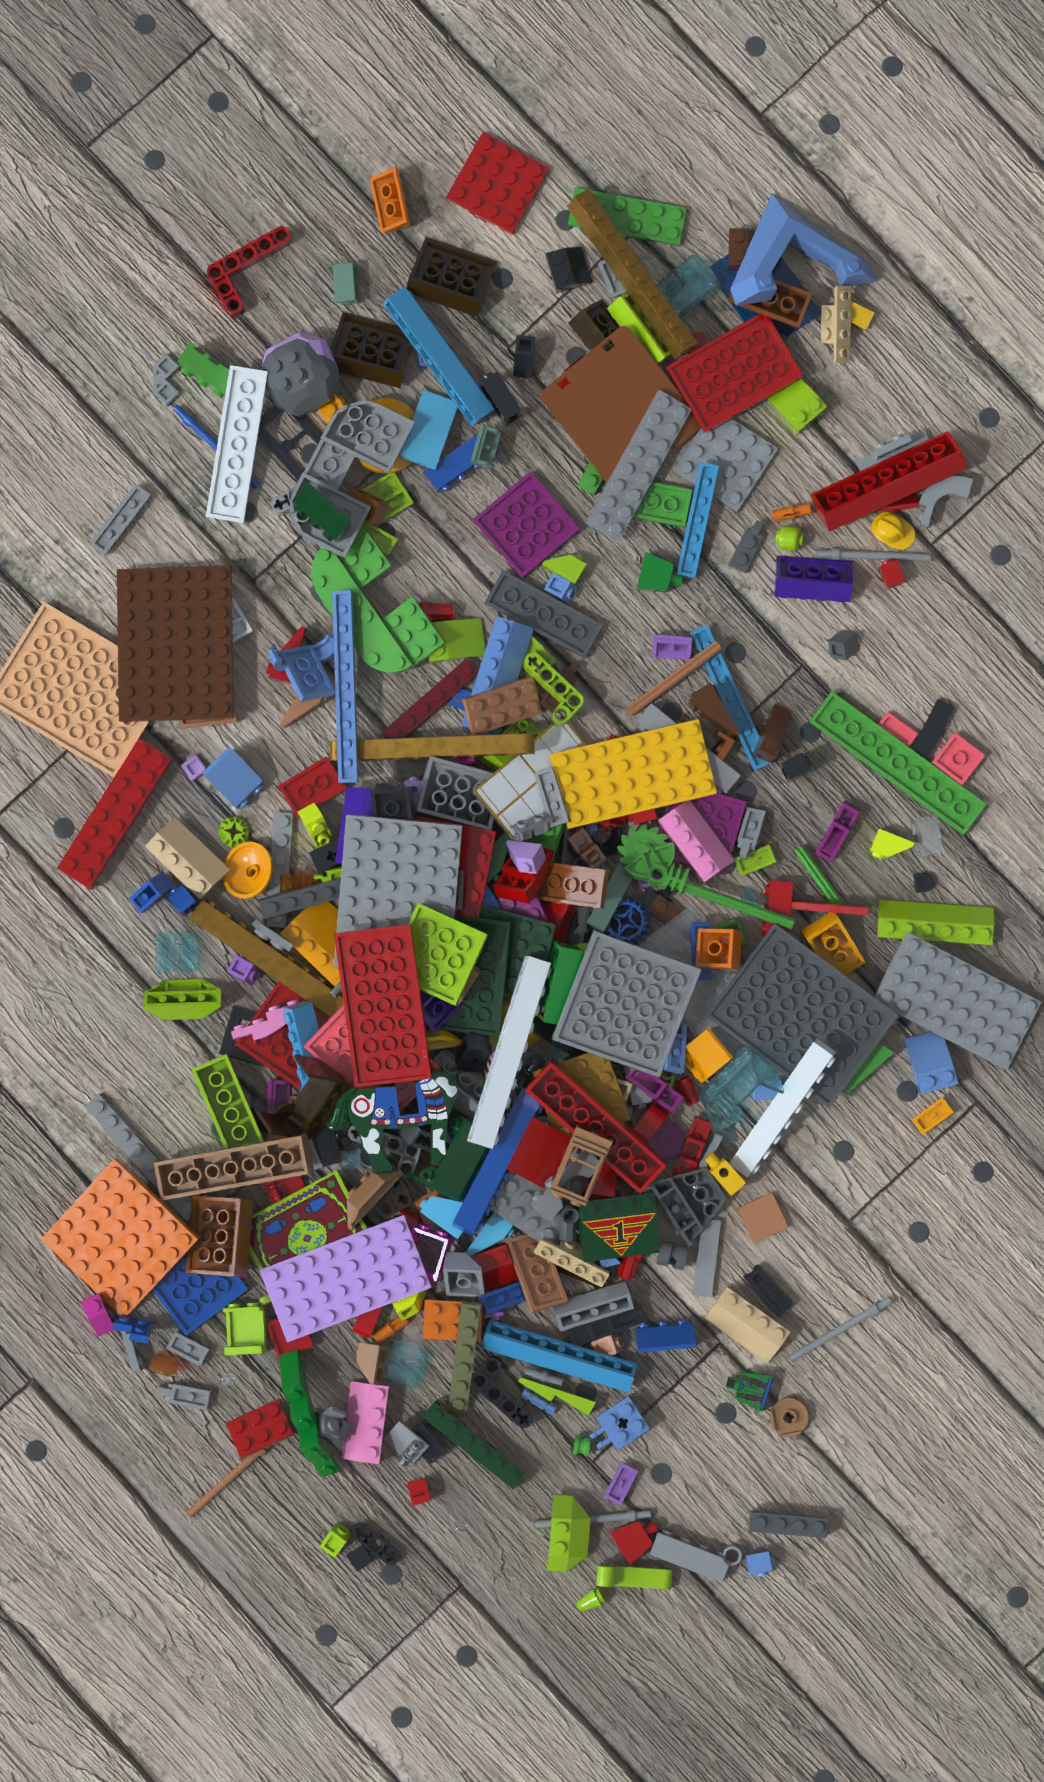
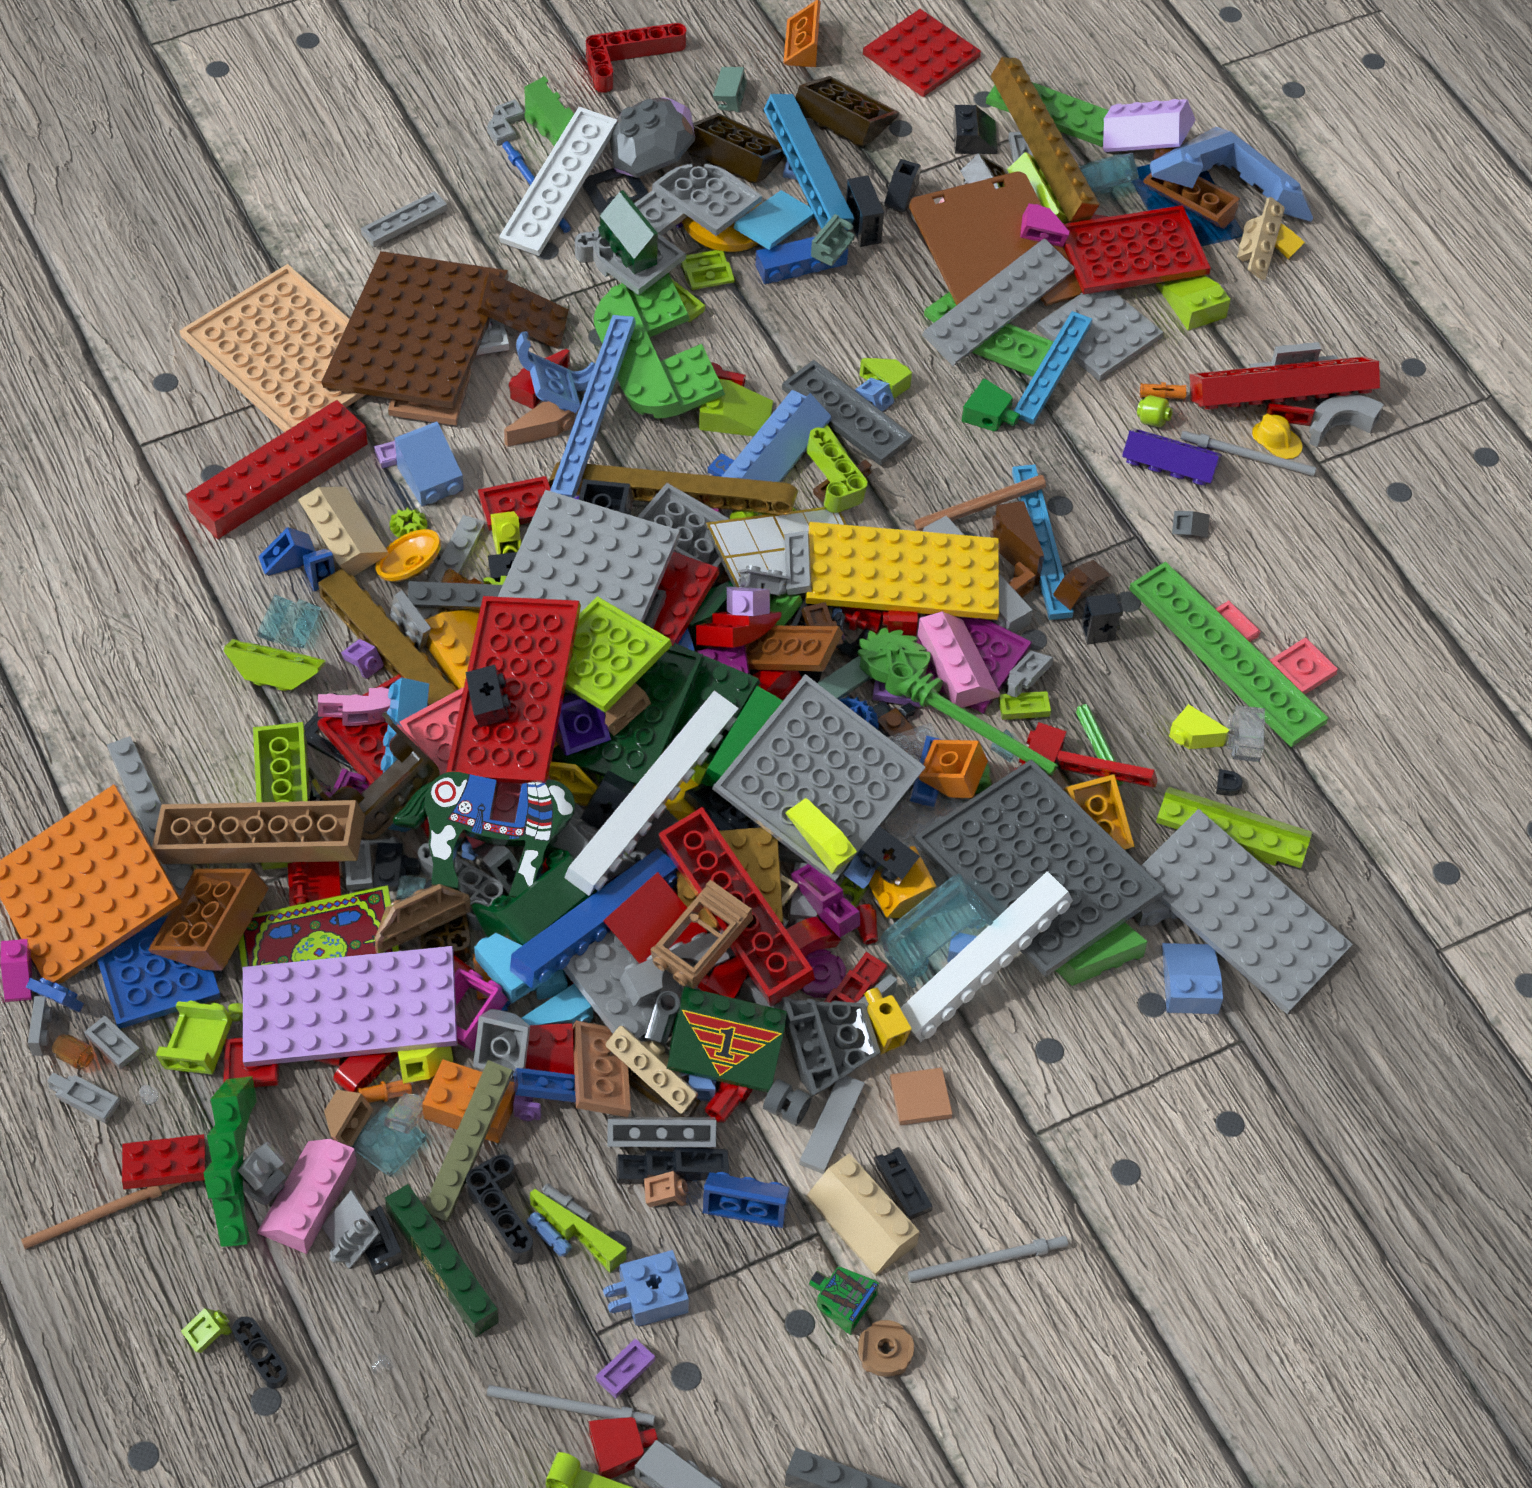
camera: 15 degrees right, 30 degrees down
(255, 599) = (522, 310): none -> reddish brown plate
(359, 1558) = (230, 1364): black tile -> none
(370, 1032) = (488, 696): none -> black brick
(378, 506) = (690, 267): dark orange panel -> none
(419, 1491) = (345, 1302): red panel -> none
(431, 701) = (701, 454): dark red plate -> none
(502, 705) = (771, 465): nougat plate -> none
(526, 524) = (854, 328): magenta plate -> none
(559, 1356) = (596, 1180): dark azure brick -> none
(567, 1533) = (527, 1411): lime wedge -> none
(581, 1445) = (588, 1303): bright green wheel -> none
(641, 1052) = (822, 835): none -> neon yellow slope
(654, 378) = (1042, 223): none -> dark pink slope
(671, 647) = (985, 474): medium lavender hinge -> none
(684, 1043) = (884, 843): none -> black brick
(716, 231) = (1147, 125): none -> lavender slope
(747, 548) = (1102, 411): dark grey hinge -> none
(837, 831) = (1136, 700): magenta slope -> none
(891, 573) = (1265, 472): red brick -> none
(932, 1116) = (1178, 1036): light orange plate -> none
(933, 728) = (1280, 630): black tile -> none

